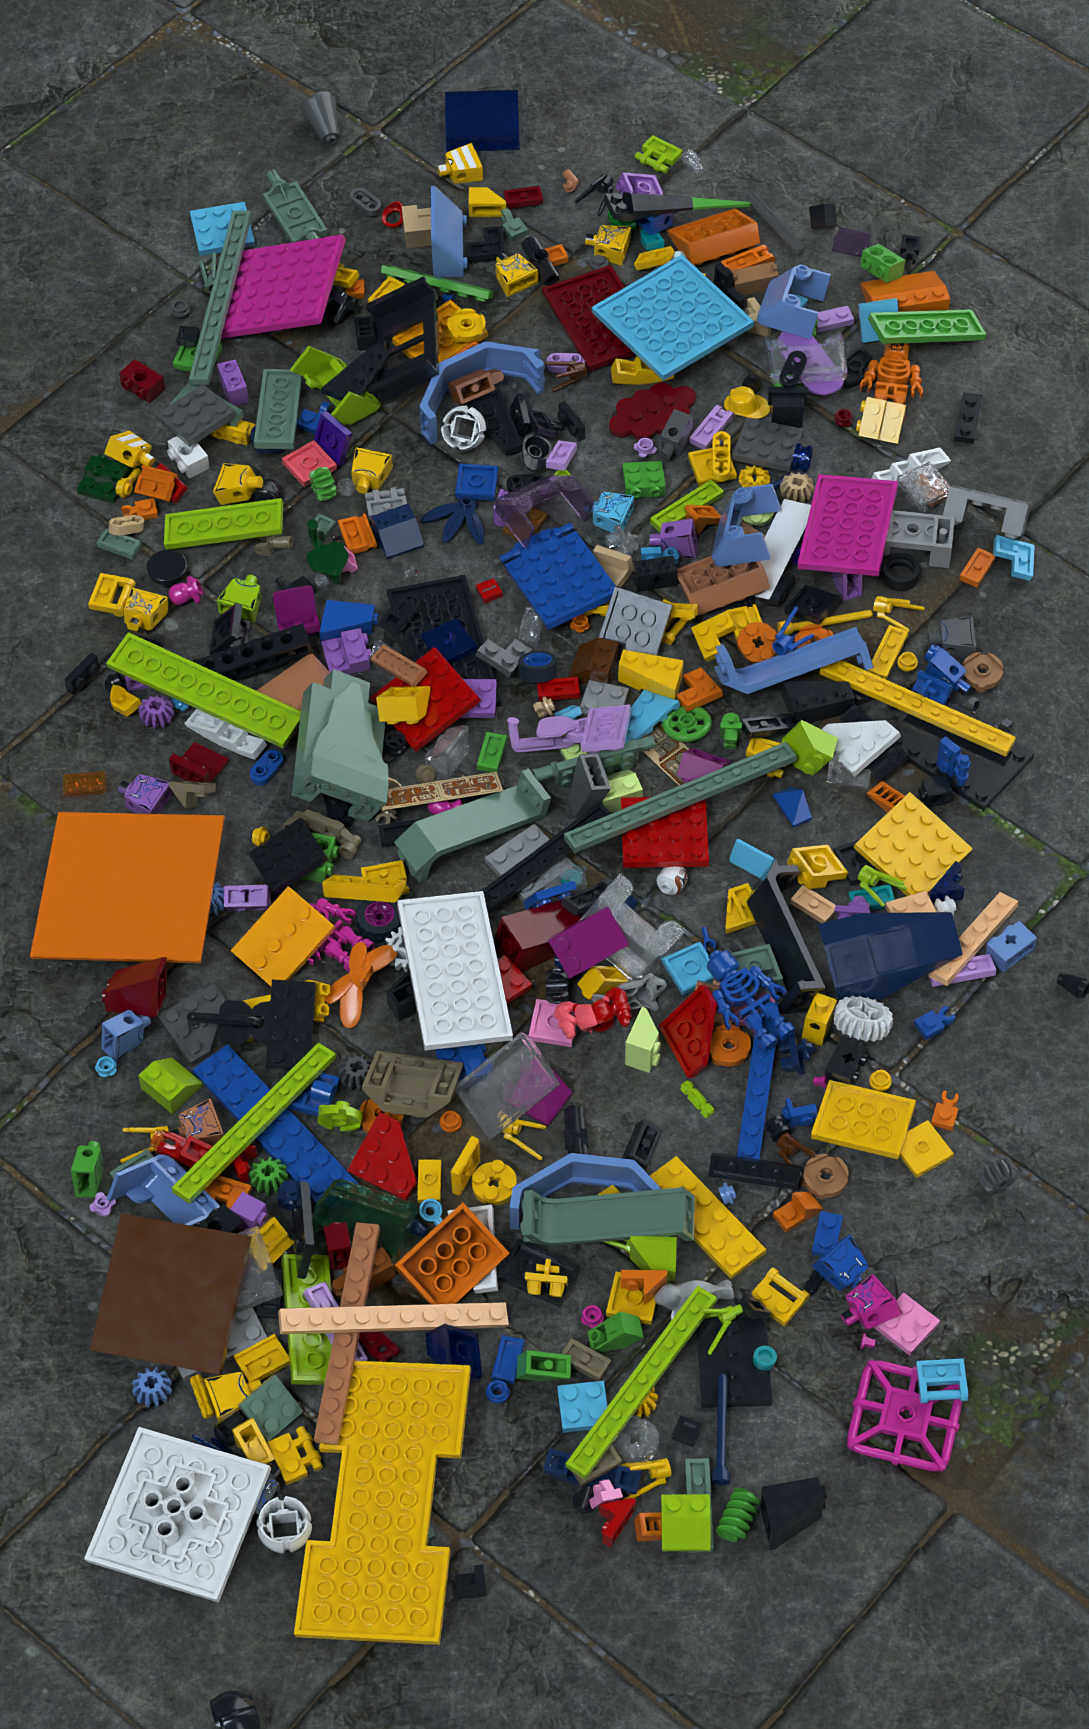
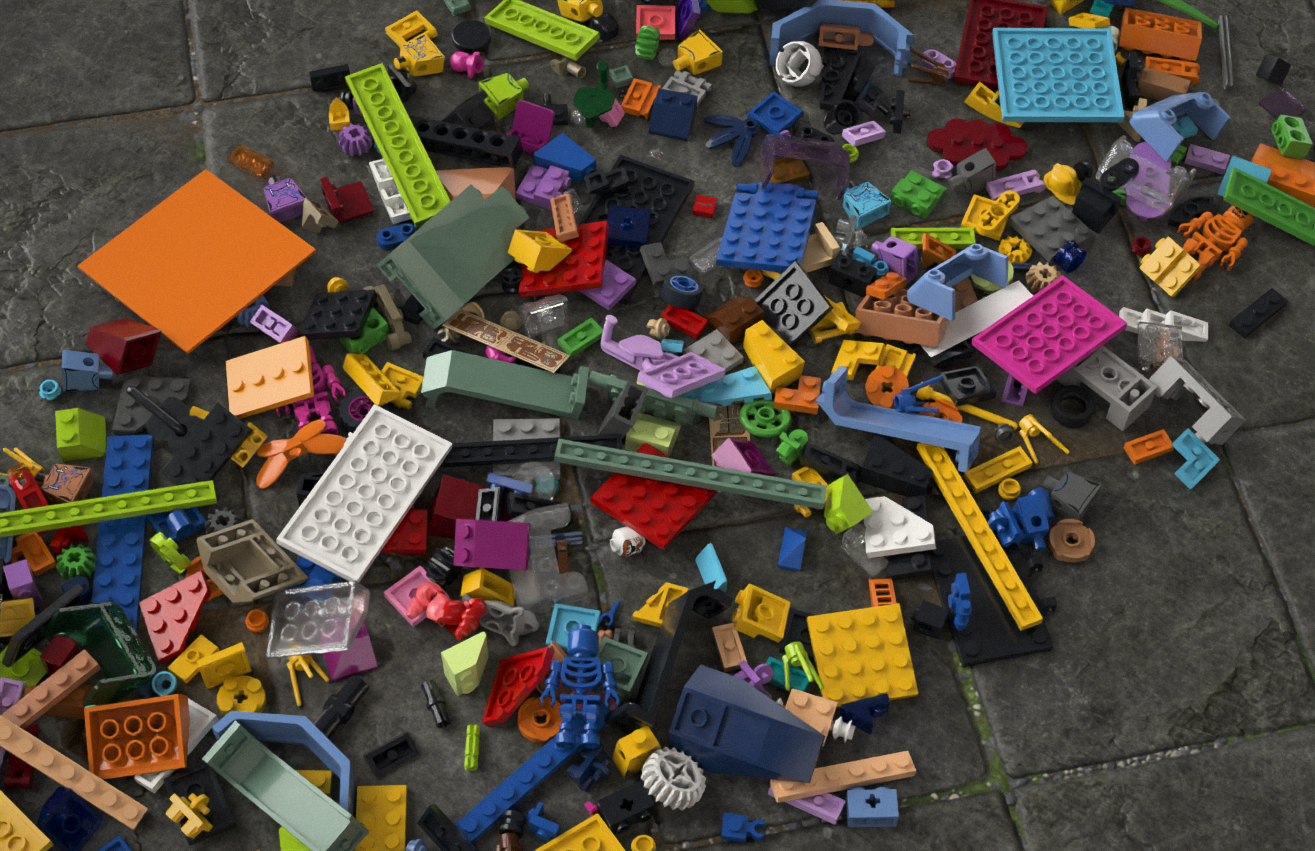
camera: 35 degrees right, 0 degrees up
(553, 917) = (491, 504): none -> black slope
(642, 1087) = (435, 704): none -> black pin
(688, 565) = (886, 286): none -> orange plate
(868, 623) = (1004, 433): none -> dark grey plate

